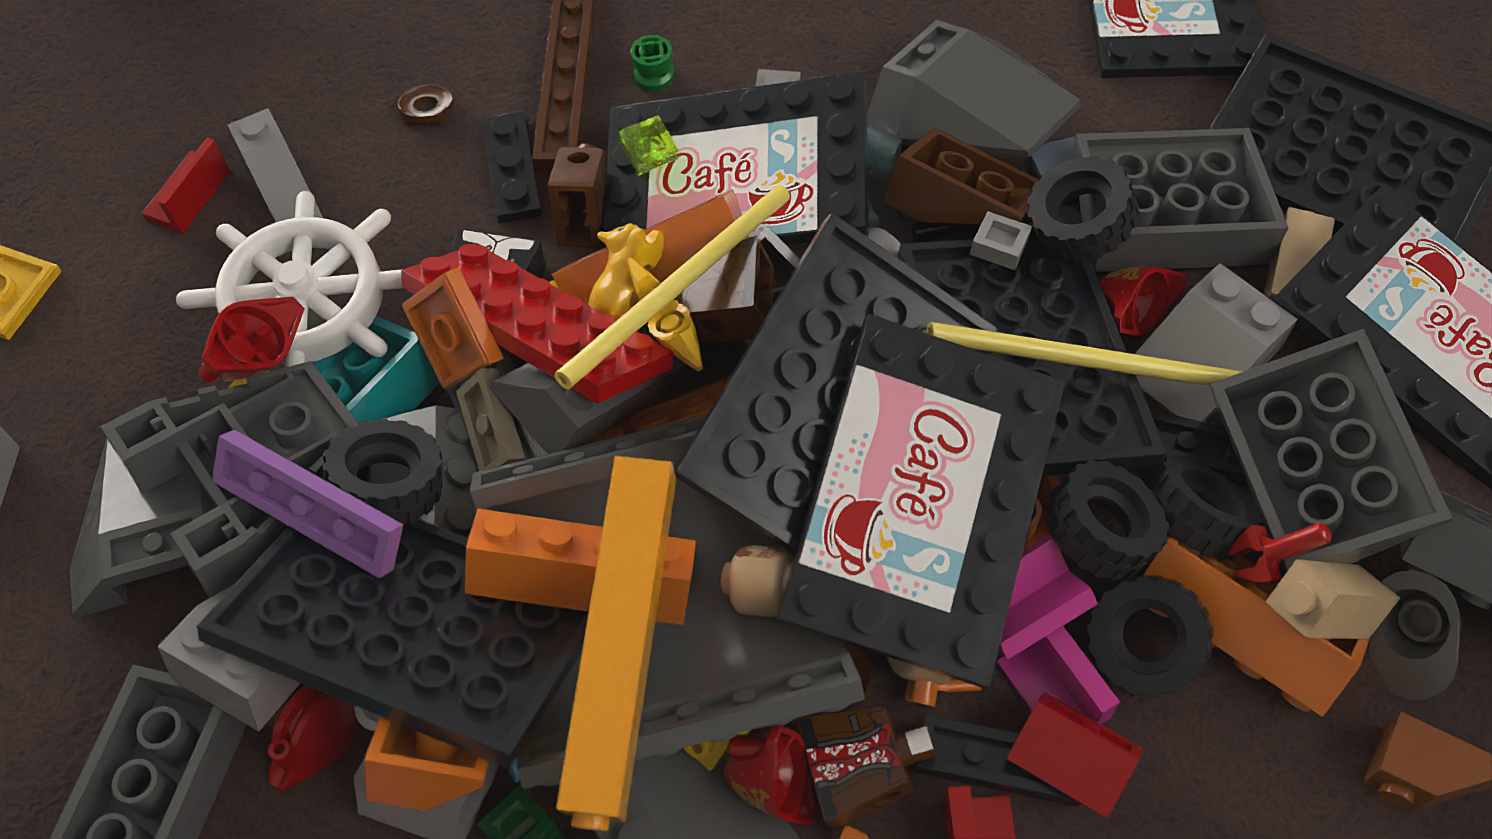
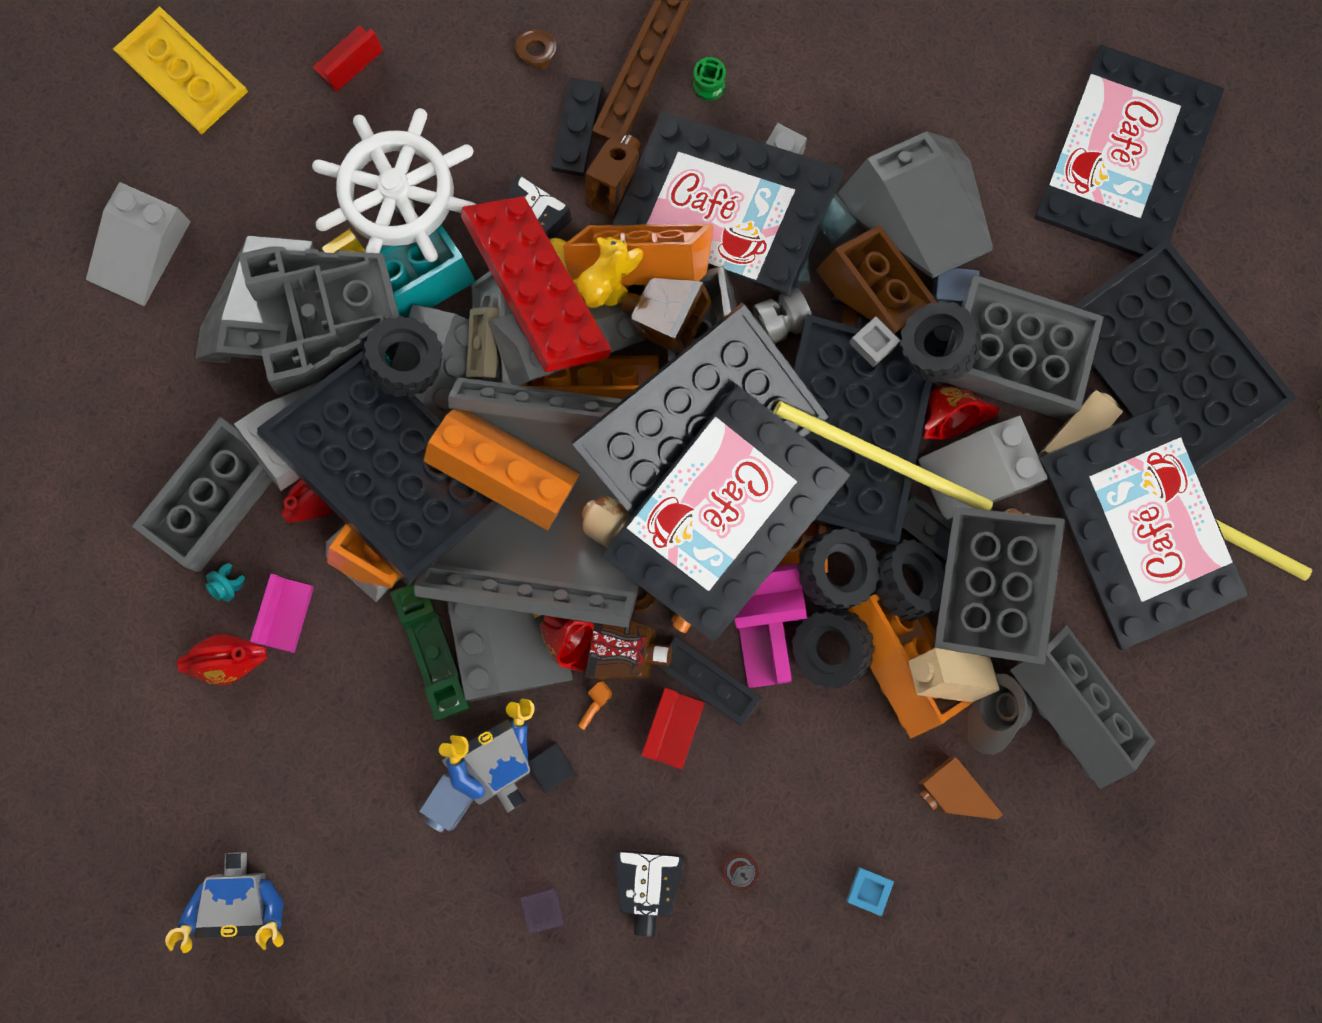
camera: 25 degrees right, 20 degrees up
(250, 338) = (348, 227): red hat -> none
(270, 163) = (411, 69): light grey slope -> none
(307, 503) = (346, 365): medium lavender plate -> none
(452, 329) = (479, 268): orange tile -> none
(617, 644) = (495, 537): light orange brick -> none
(648, 145) = (670, 161): clear neon green plate -> none
(670, 288) = (630, 303): light yellow piece -> none
(671, 325) = (617, 322): yellow hair -> none
(1075, 754) = (751, 697): red panel -> none
(1276, 550) = (932, 632): red bar -> none

